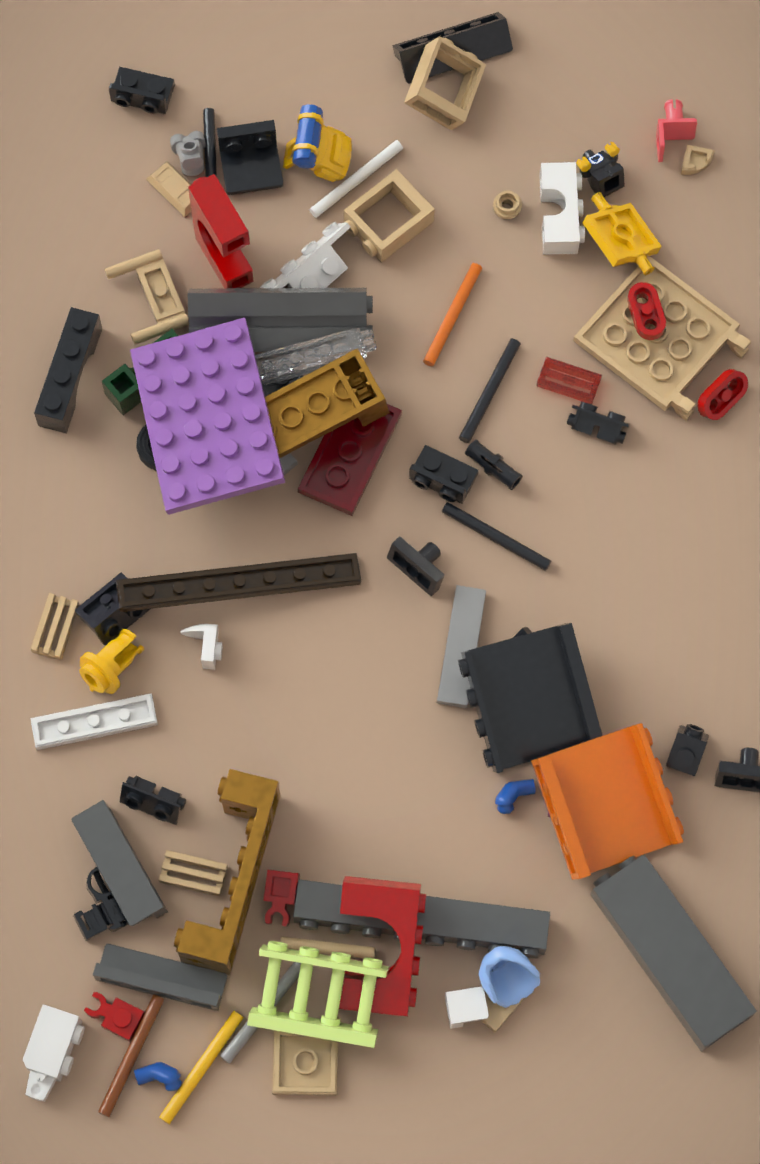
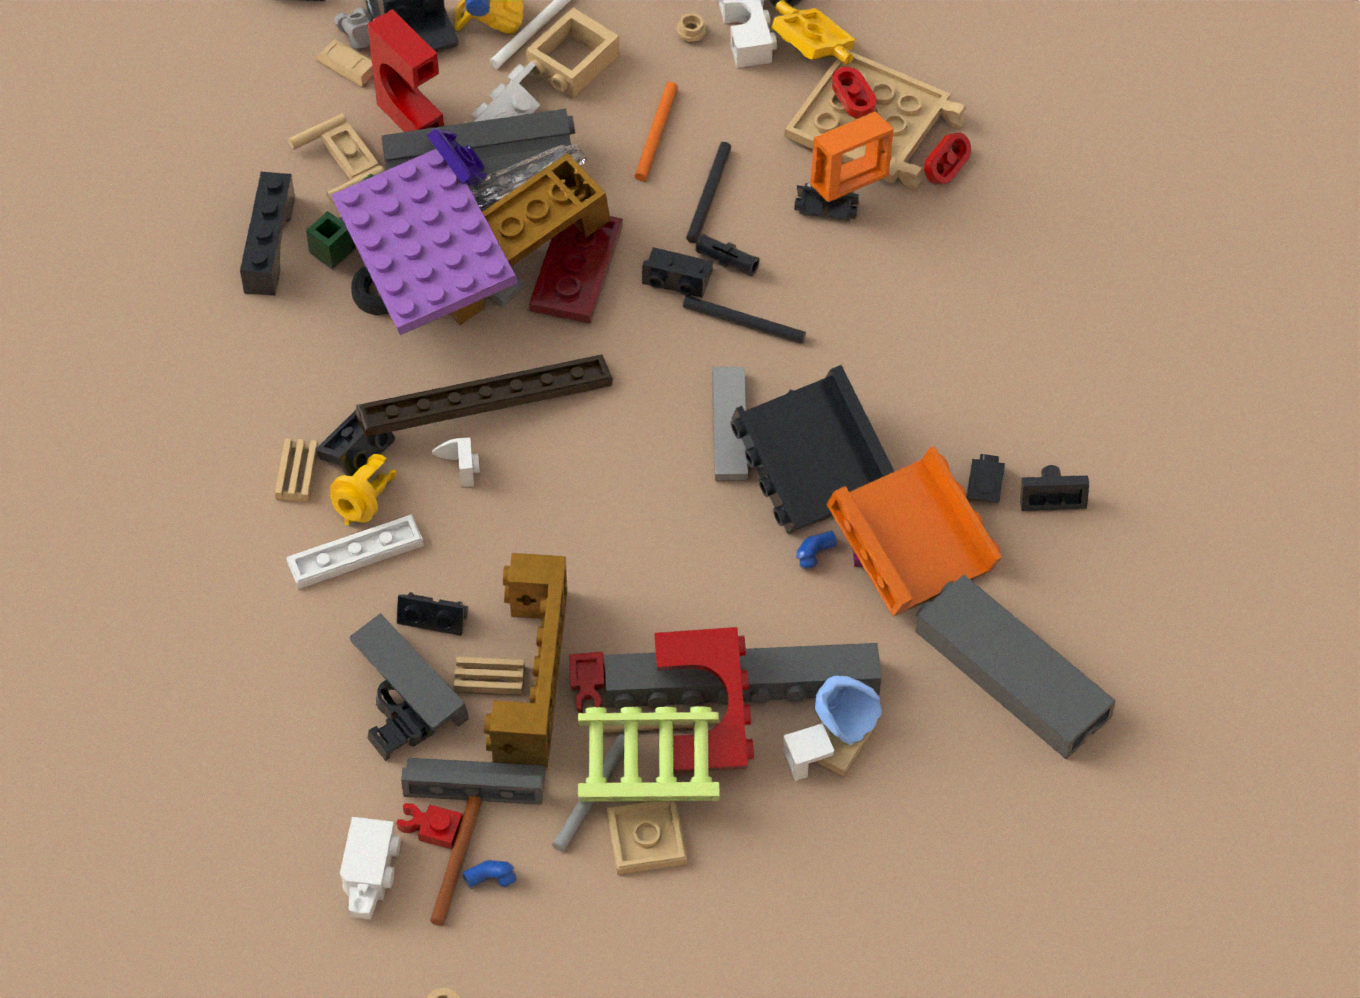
camera: 10 degrees left, 15 degrees down
(201, 1067) = (534, 859): yellow bar -> none
(255, 333) = (461, 159): none -> dark purple tile
(417, 564) = (667, 354): black tile -> none
(571, 370) = (787, 166): clear red tile -> none
(628, 390) = (836, 180): none -> orange window

